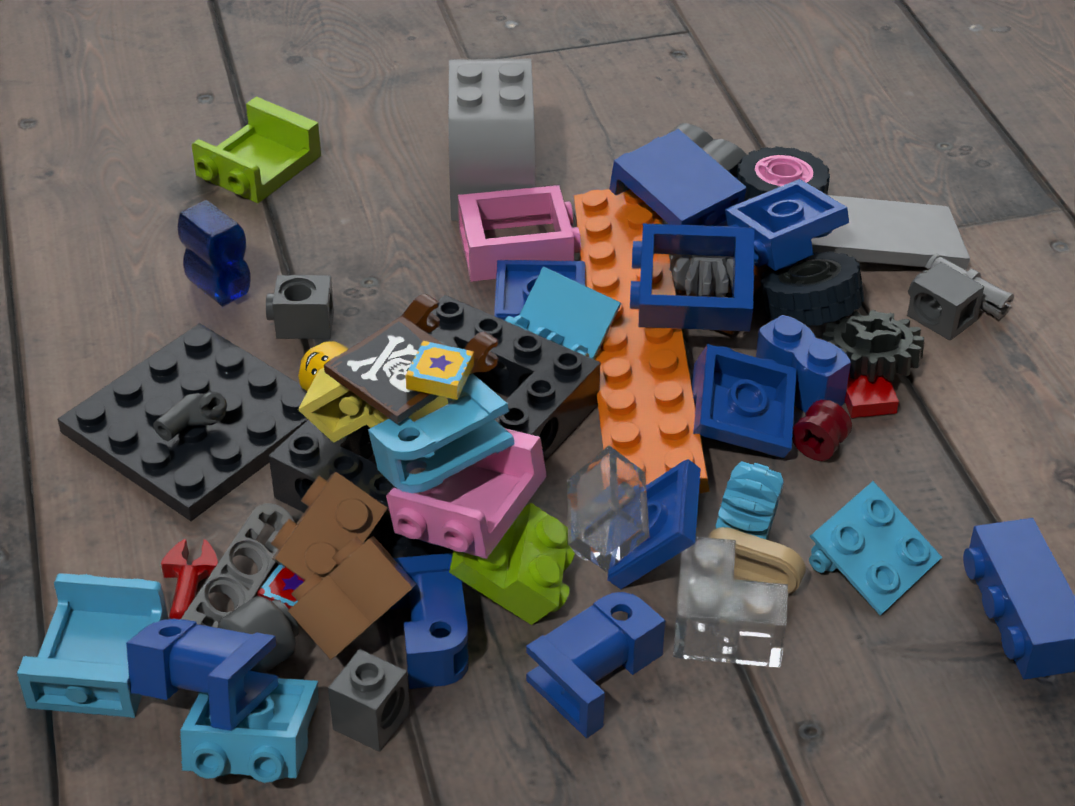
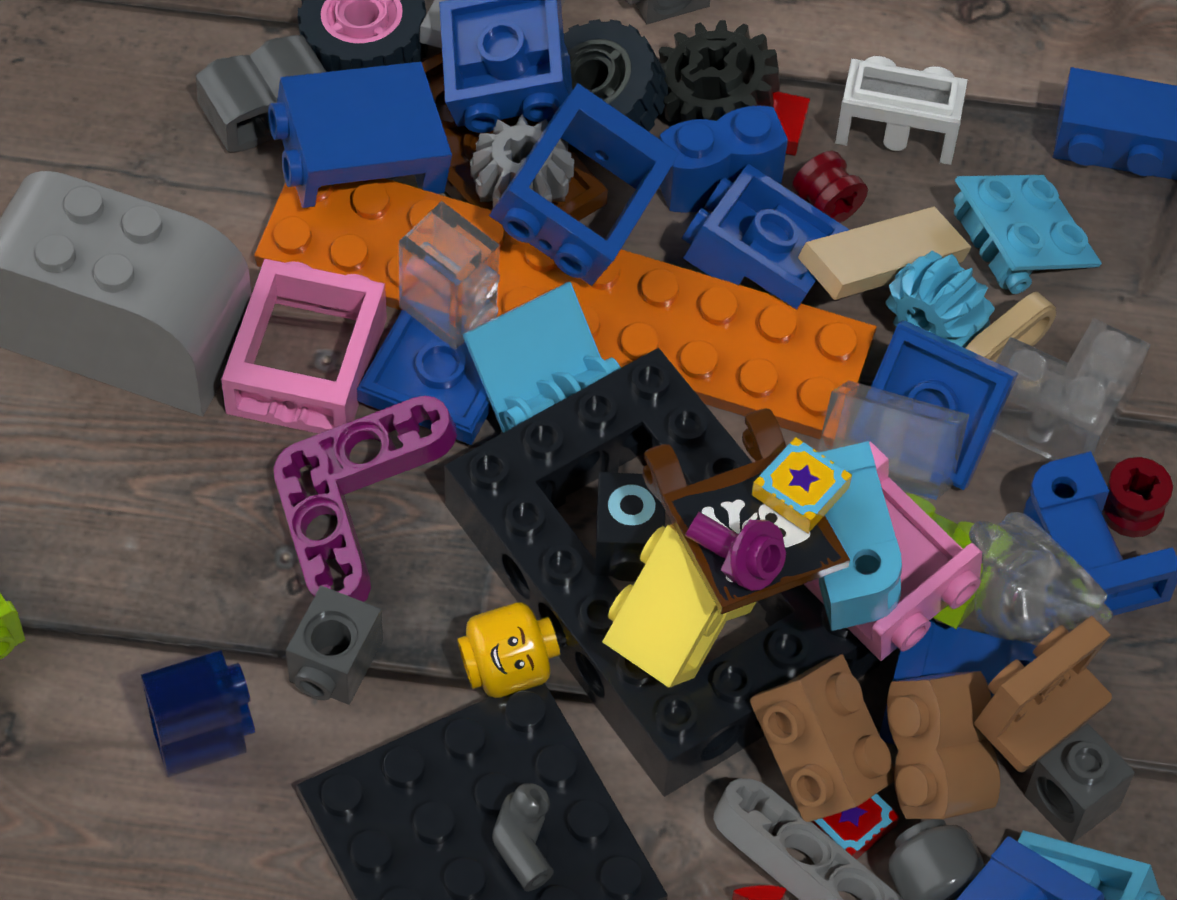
camera: 70 degrees left, 15 degrees up
(363, 353) = (750, 557): none -> magenta plate
(404, 622) = (1046, 699): none -> medium nougat bracket
(417, 268) = (336, 475): none -> magenta beam
(517, 598) = (1031, 582): none -> clear hat
(581, 237) = (448, 274): none -> clear brick
(659, 679) = (1130, 512): none -> dark red wheel
(805, 484) = (877, 252): none -> tan tile
(931, 445) = (903, 100): none -> white window

